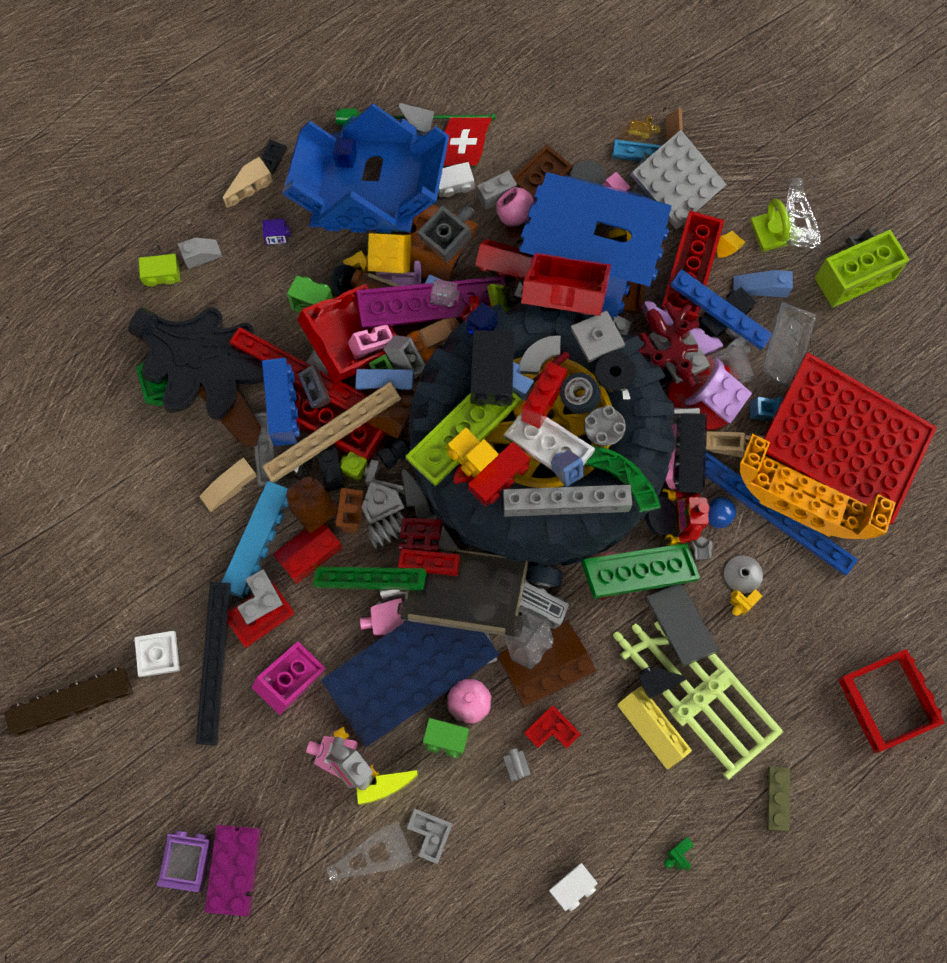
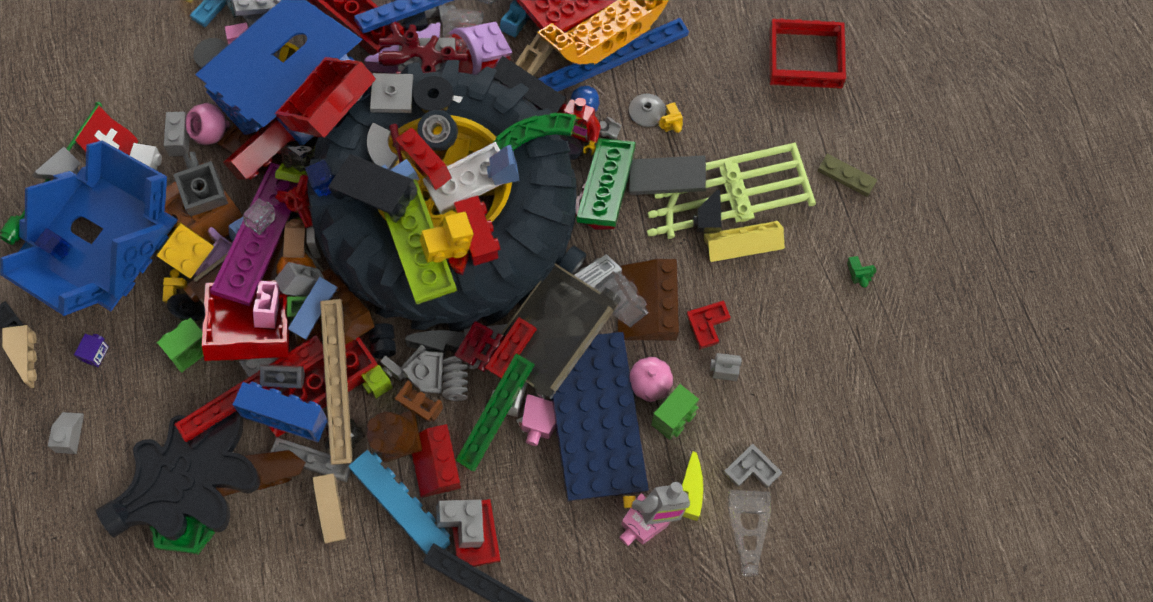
camera: 65 degrees left, 5 degrees down
(159, 269) = (62, 480): lime brick -> none
(288, 678) = (550, 532): dark pink slope -> none
(331, 469) = (366, 403): black slope -> none
(534, 171) = (183, 87): reddish brown plate -> none
(567, 500) = (530, 186): light grey brick -> none
(573, 887) = (851, 368): white brick -> none
(604, 426) = (478, 125): light grey dish -> none

